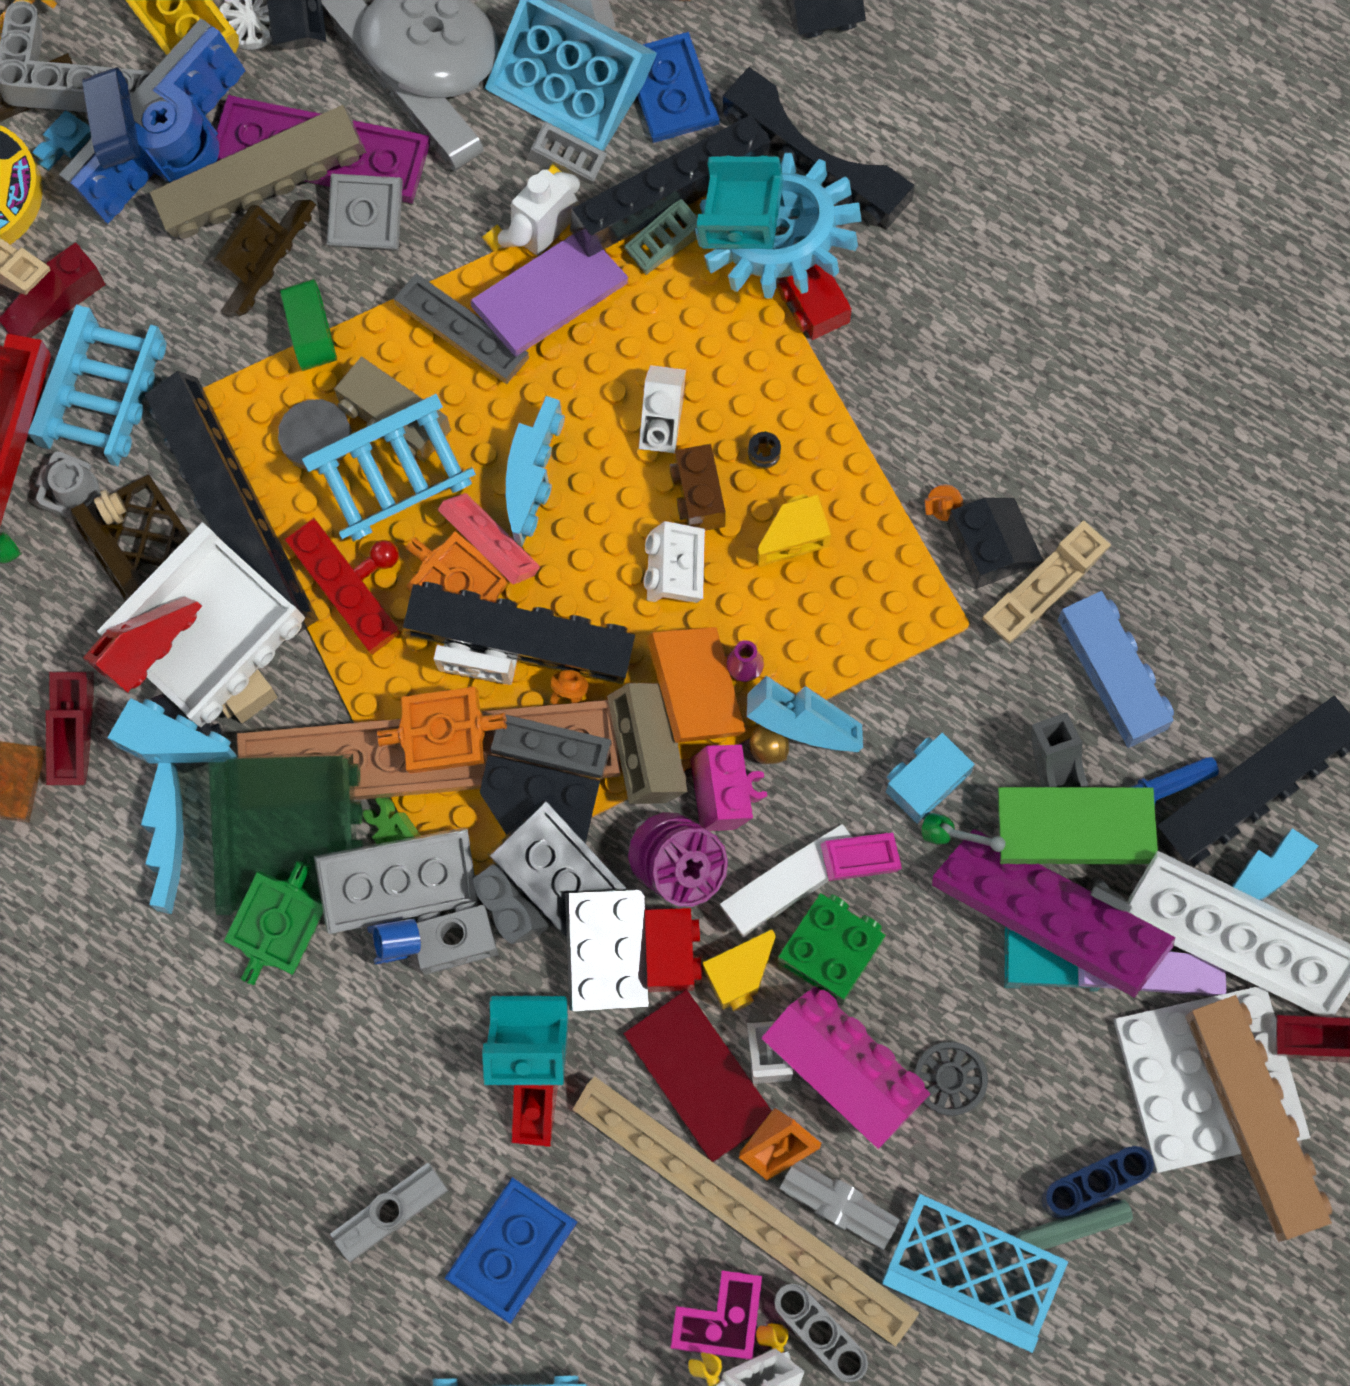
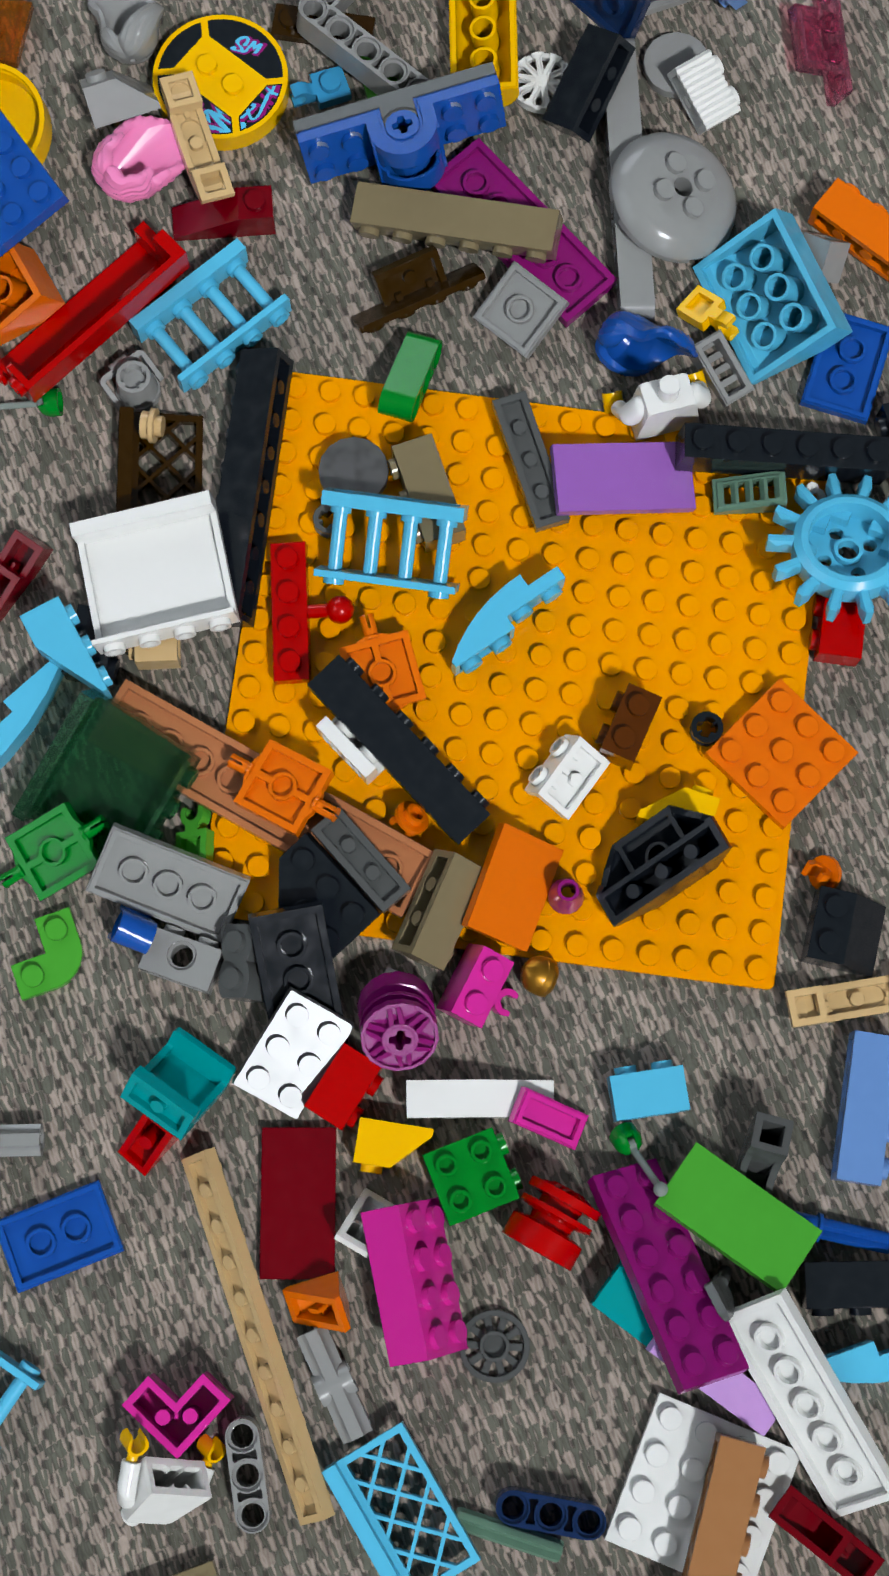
camera: 30 degrees right, 5 degrees up
(111, 117) = (362, 101): dark blue beam -> none
(133, 646) = (91, 554): red slope -> none
(311, 483) = (322, 510): none -> dark grey bush
(345, 1013) = (61, 956): none -> bright green plate
(484, 177) = (637, 346): none -> blue piece
(488, 538) = (431, 653): coral tile -> none
(520, 113) = (704, 309): none -> yellow plate
(662, 408) = (646, 638): white slope -> none
(741, 203) = (828, 510): teal panel -> none
(803, 717) = (581, 973): medium azure slope -> none
(805, 577) = (659, 862): none -> black wedge
(840, 429) = (781, 754): none -> orange plate
(925, 931) = (551, 1222): none -> red wheel

